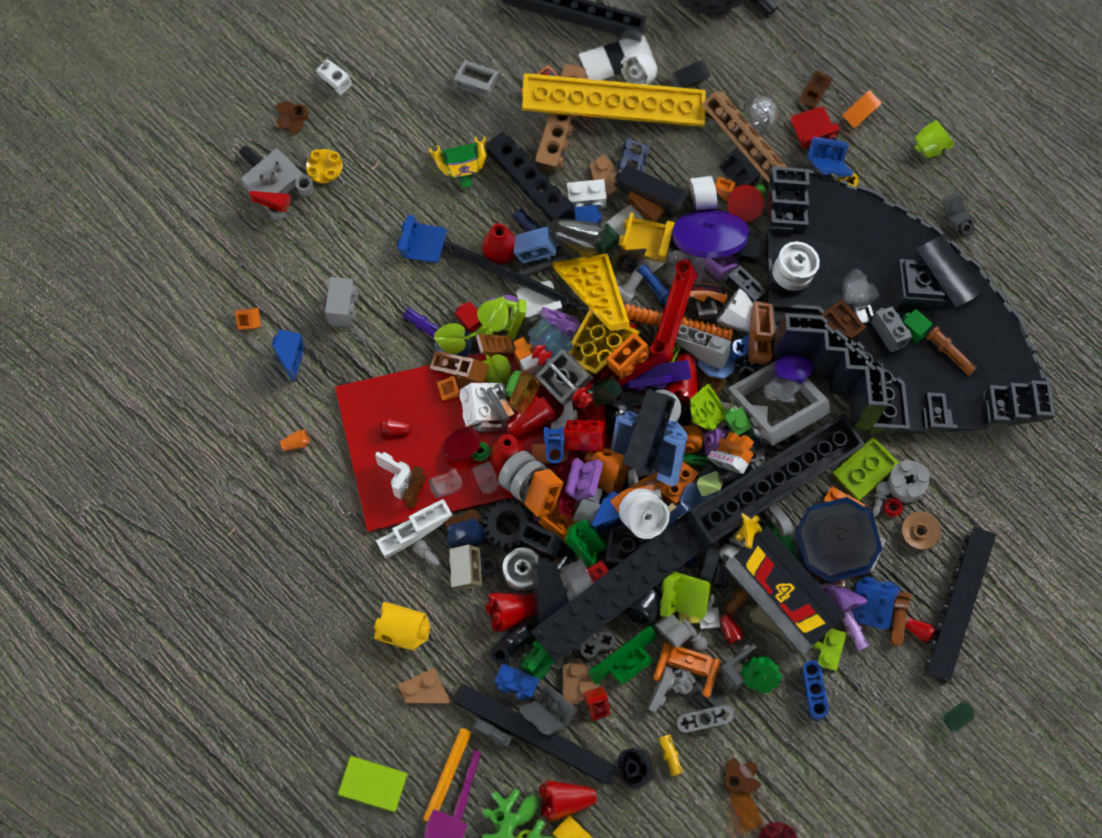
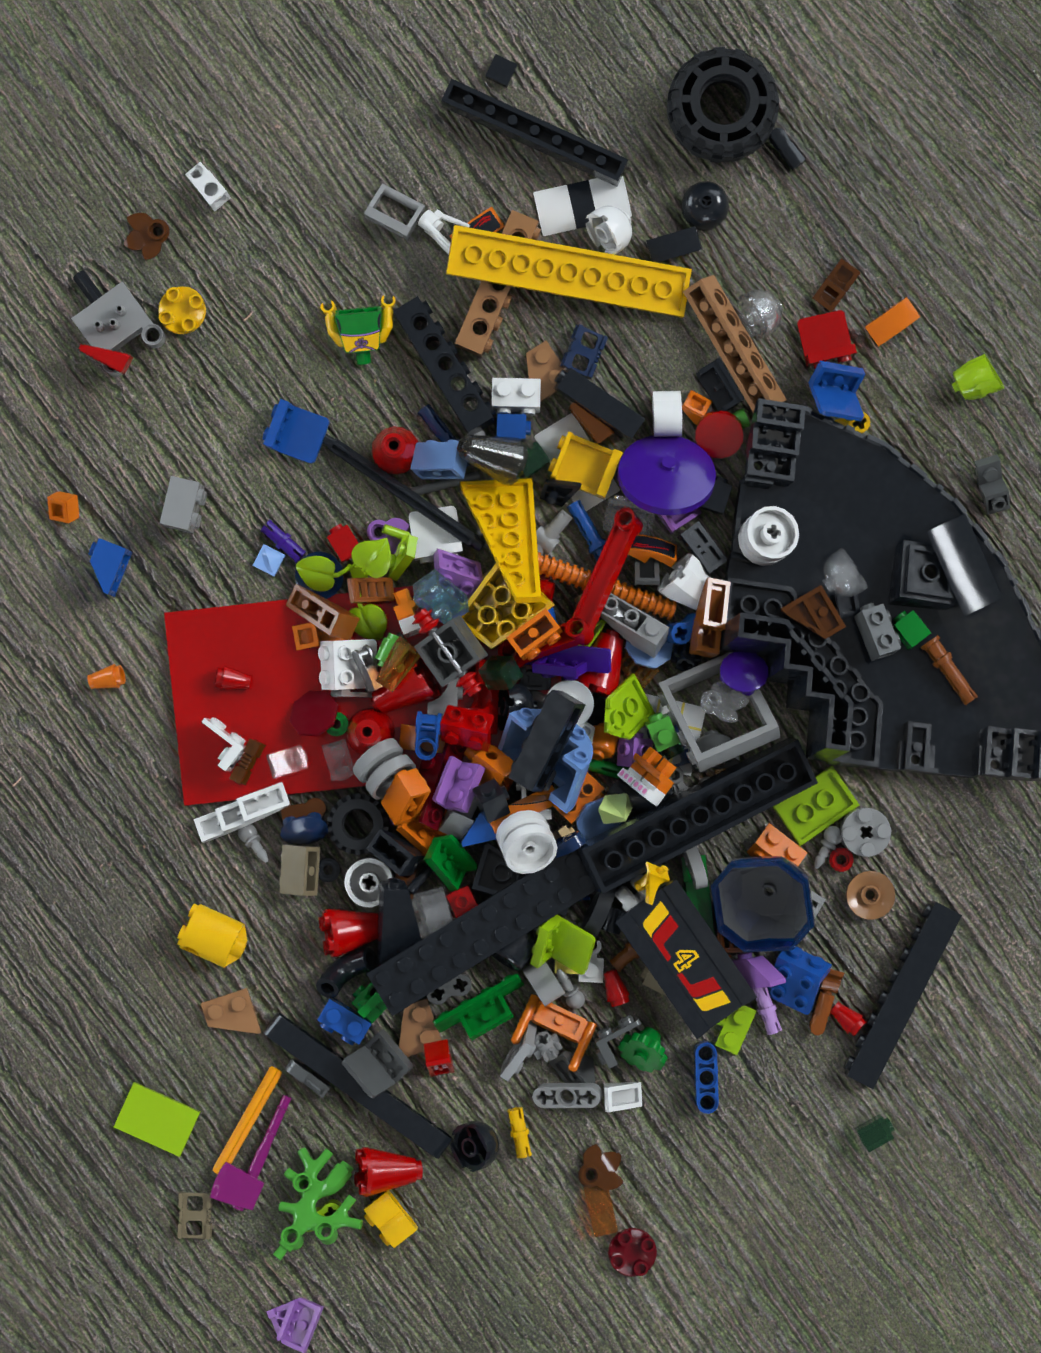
camera: 10 degrees right, 15 degrees up
(412, 338) = (269, 560): none -> light blue tile
(507, 82) = (432, 225): none -> white plant
(612, 485) = (492, 800): none -> black brick
(708, 45) = (705, 216): none -> black cylinder
(749, 714) = (622, 1096): none -> white slope

